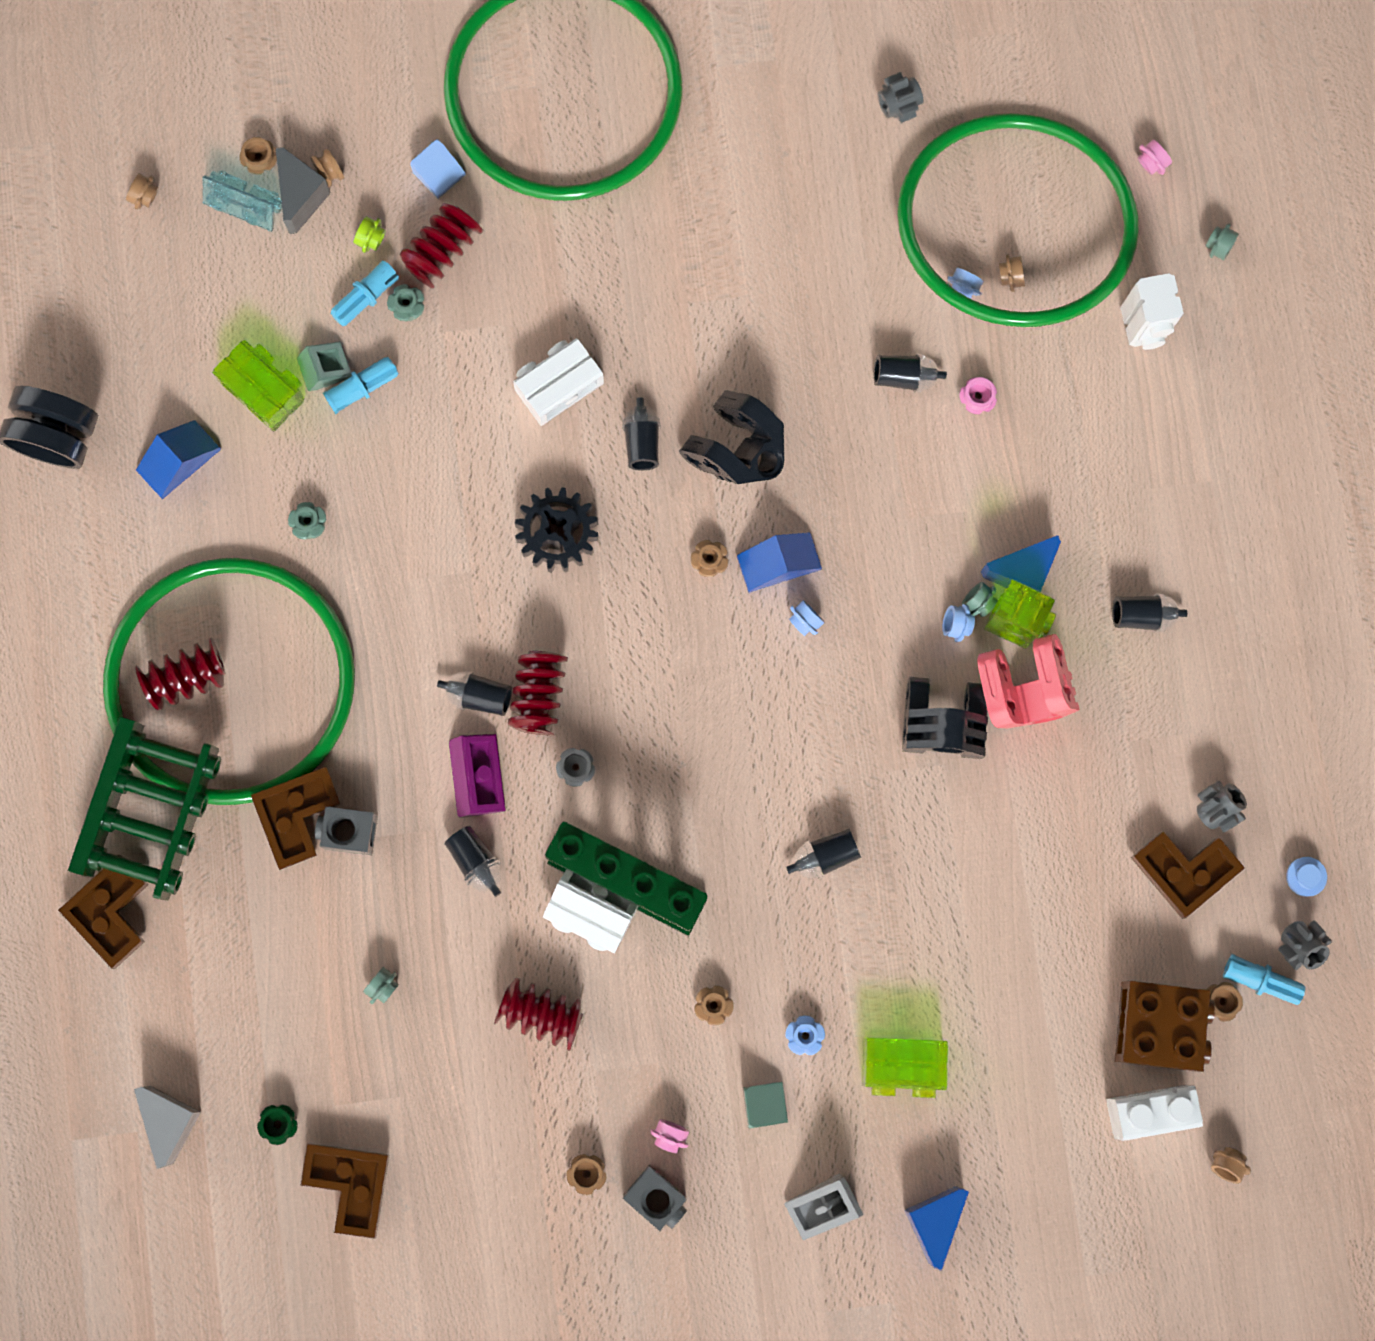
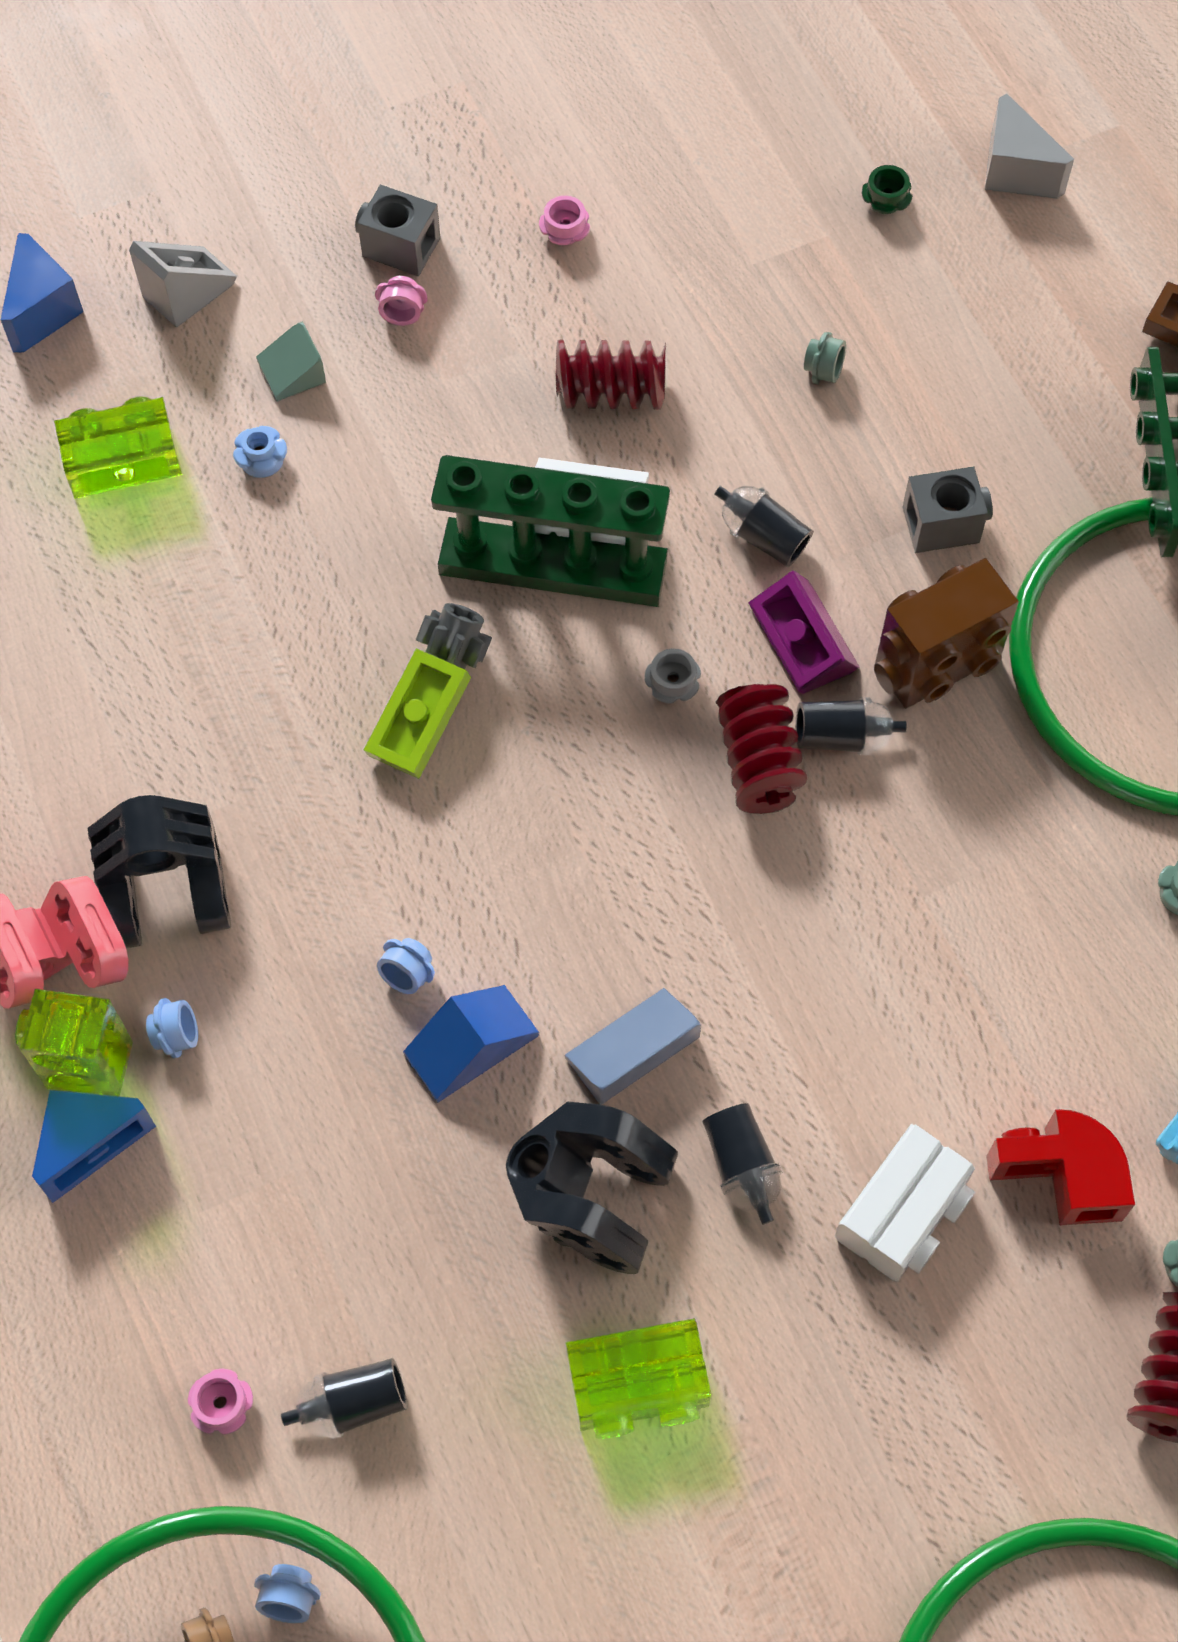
camera: 170 degrees right, 15 degrees down
(283, 811) = (1036, 513): reddish brown plate -> none
(357, 1176) = (772, 165): reddish brown plate -> none
(392, 724) = (944, 633): none -> reddish brown brick
(448, 376) = (1080, 1156): none -> red brick
(527, 1183) = (564, 211): none -> bright pink plate
(544, 539) = (808, 953): black gear -> none
(575, 1174) = (490, 227): medium nougat plate -> none
(682, 527) = (634, 1045): none -> slope
(707, 568) = (583, 1025): medium nougat plate -> none
(713, 833) = (455, 635): none -> dark grey gear
(713, 1016) = (390, 464): medium nougat plate -> none
(743, 333) = (638, 1378): none -> clear neon green brick
(752, 785) = (417, 713): none -> lime plate
(825, 855) = (288, 661): black piece -> none
(980, 599) = (146, 1071): sand green plate -> none

